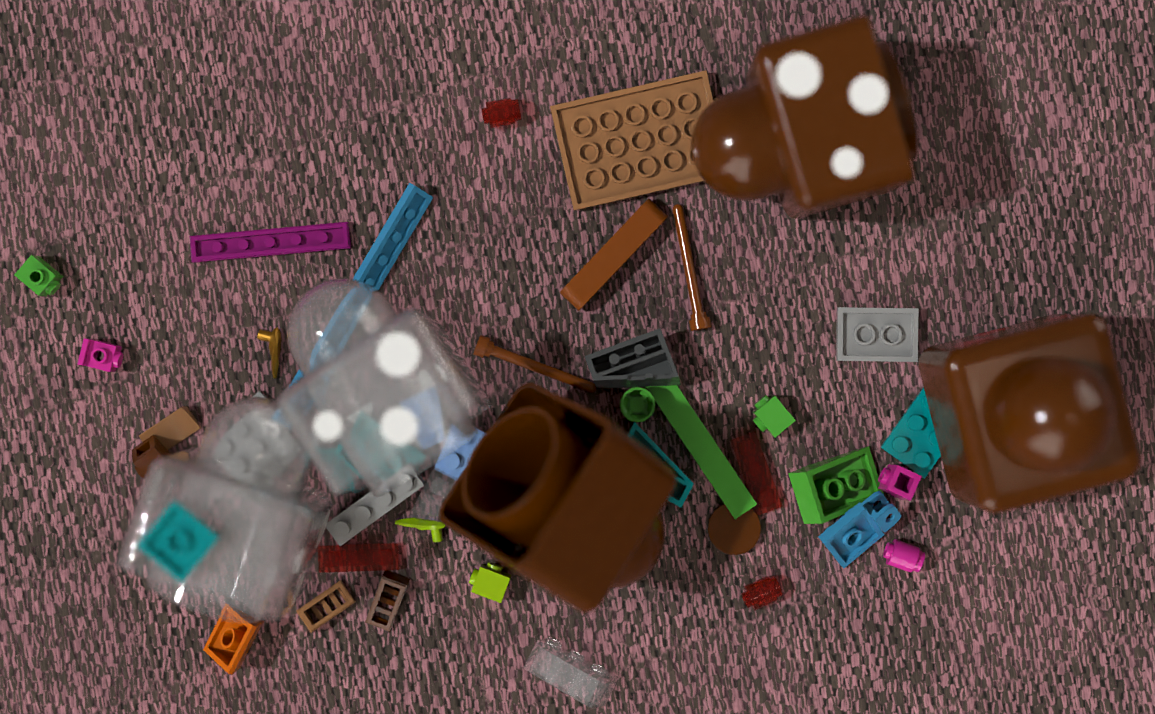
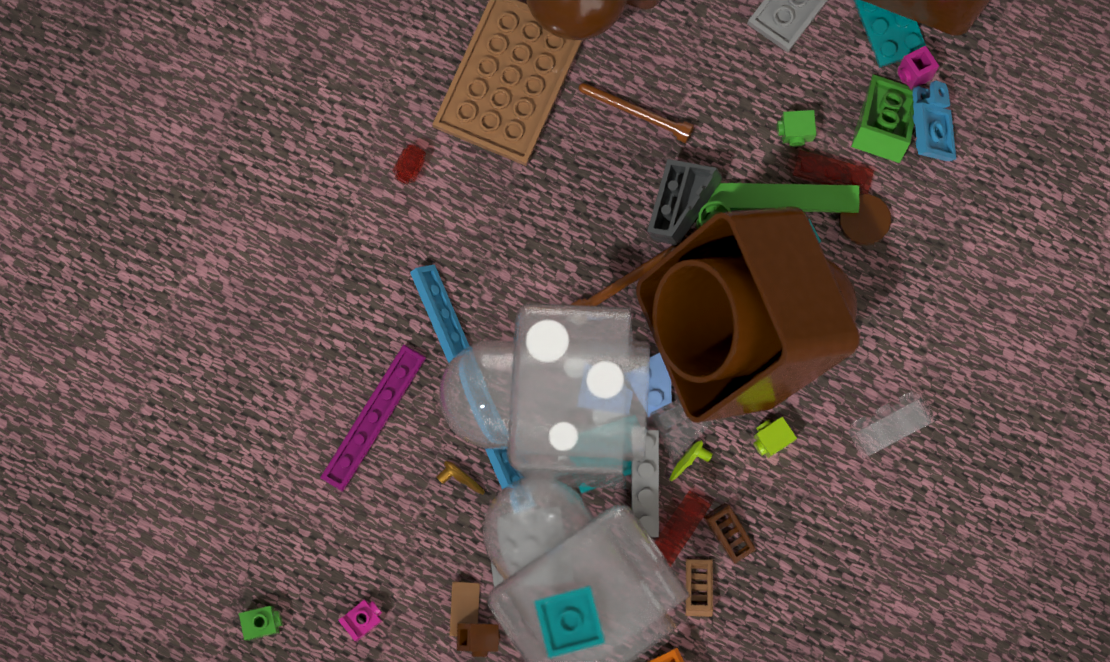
camera: 60 degrees left, 10 degrees down
(613, 254) = (583, 158): dark orange beam -> none
(761, 592) = (932, 233): clear red brick -> none
(904, 556) = (978, 106): dark pink brick -> none

